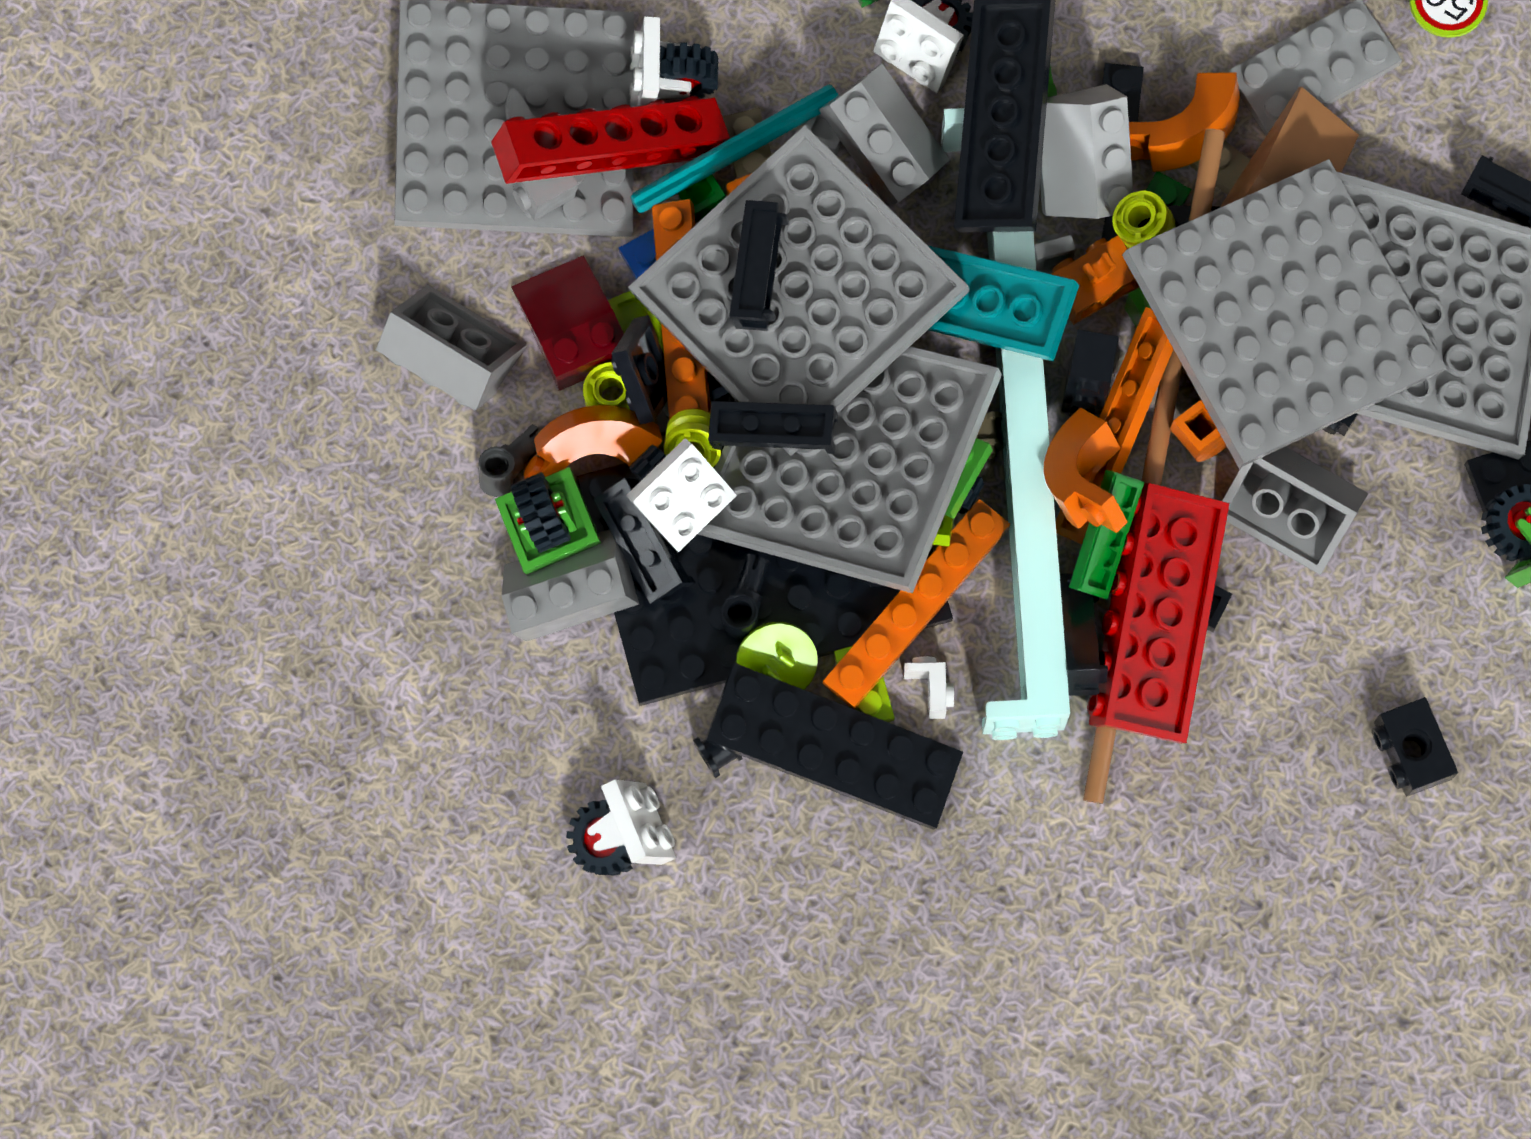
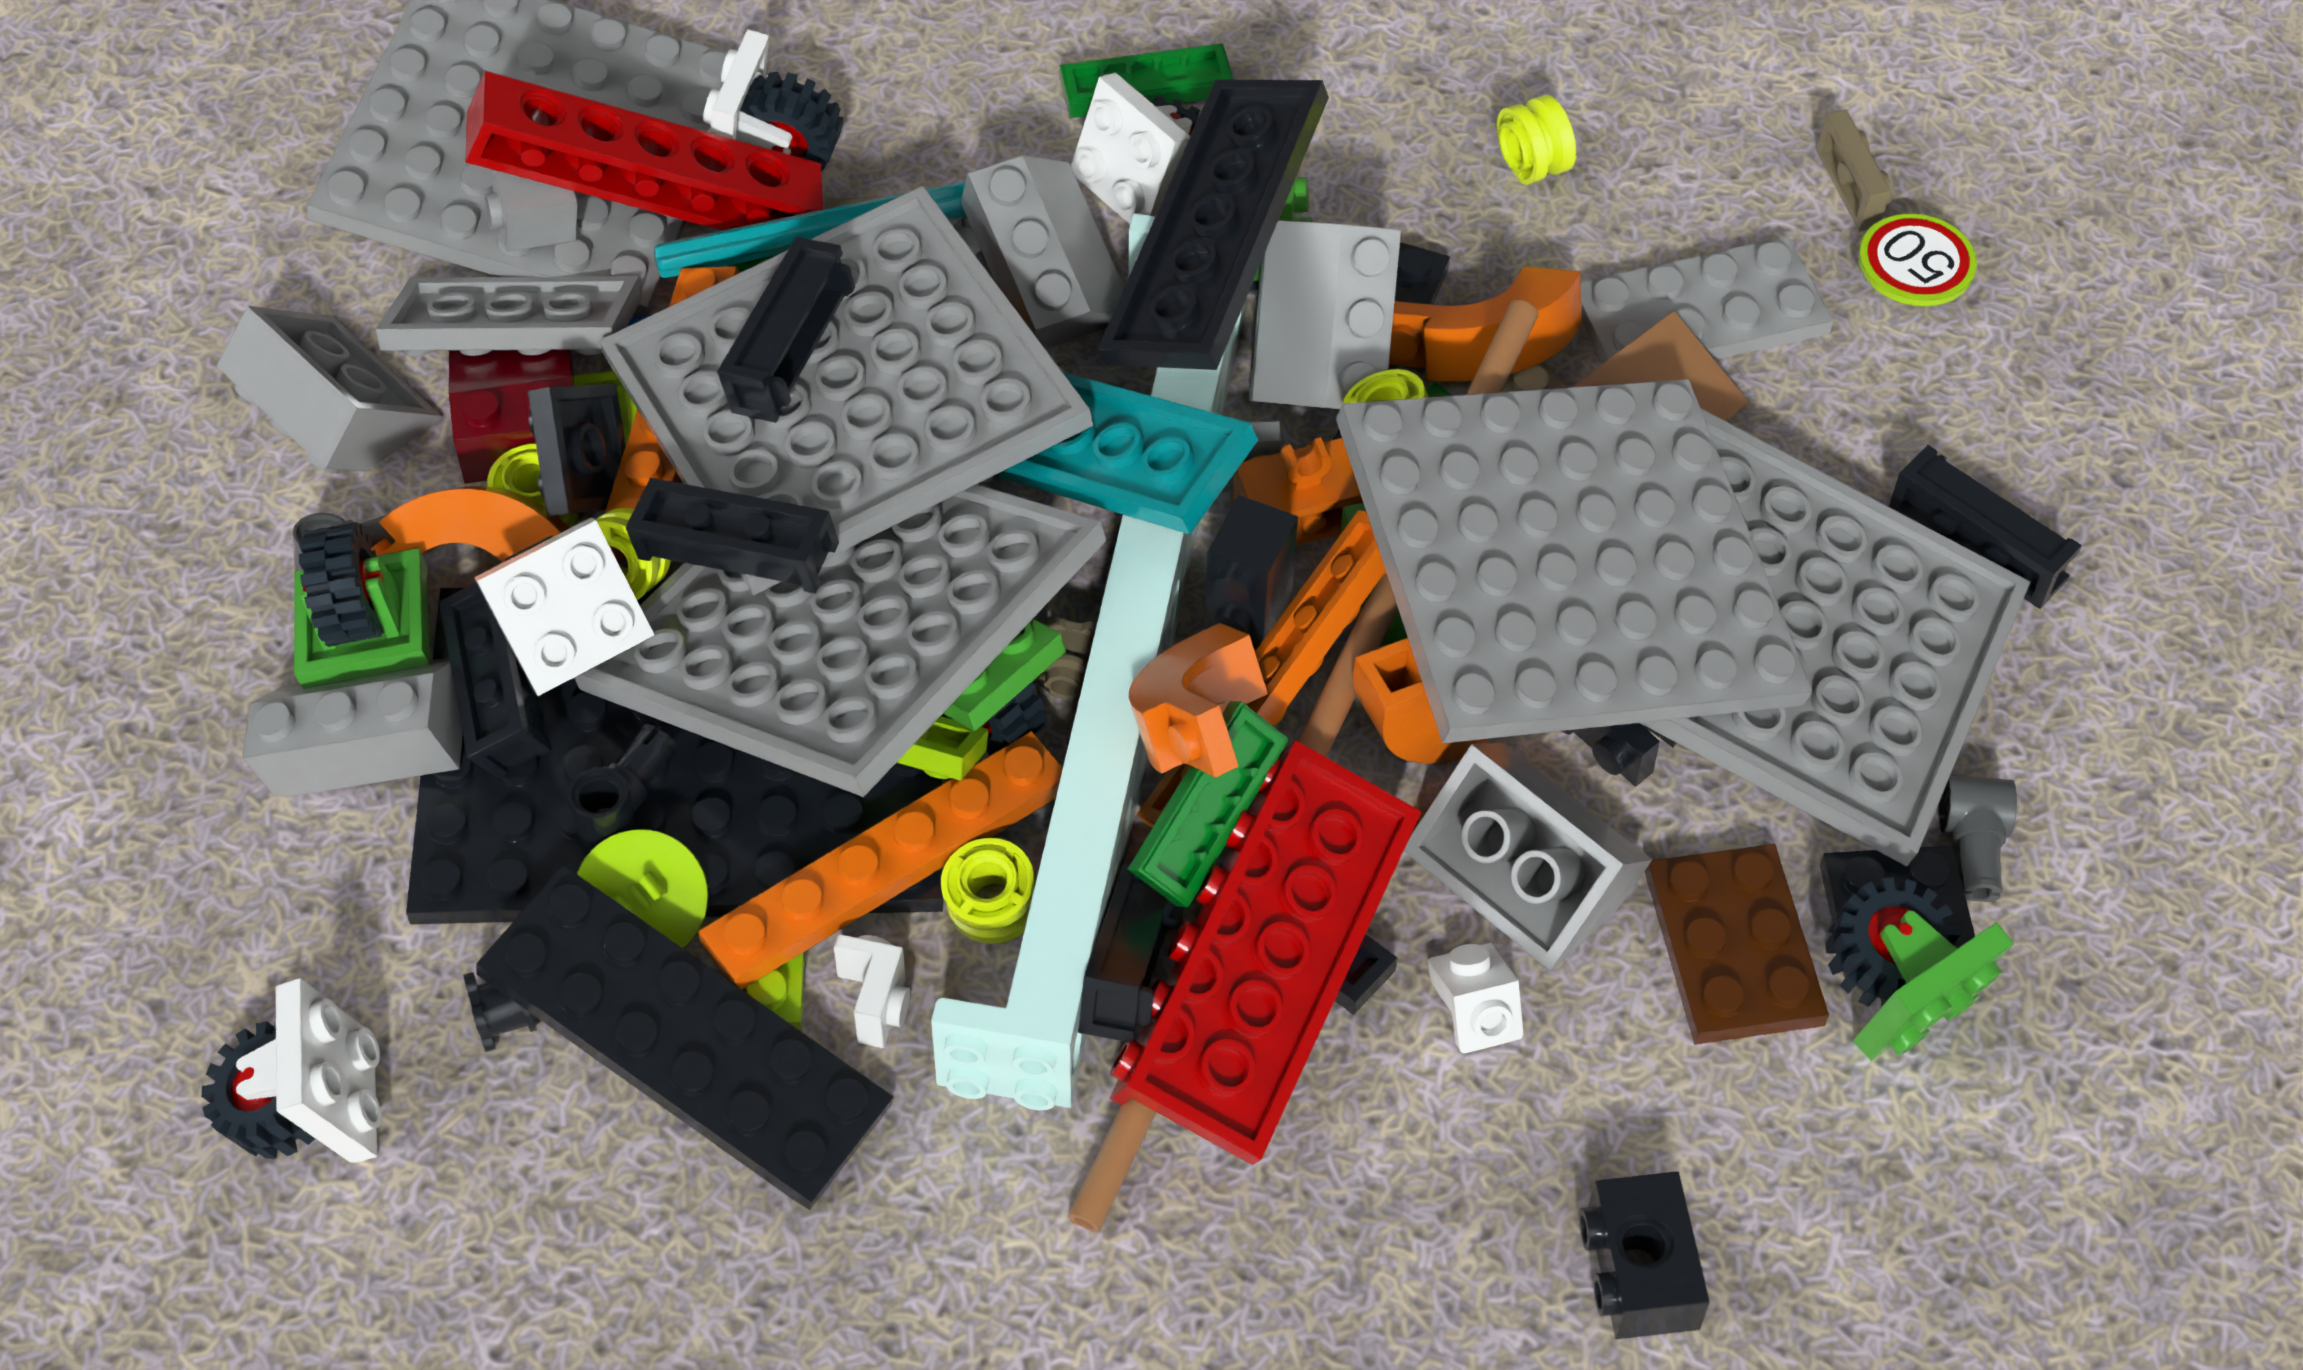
camera: 10 degrees right, 20 degrees down
(551, 265) = (508, 314): none -> light grey plate
(978, 587) = (982, 864): none -> neon yellow wheel
(1283, 603) = (1480, 996): none -> white bracket
(1425, 531) = (1735, 944): none -> reddish brown plate

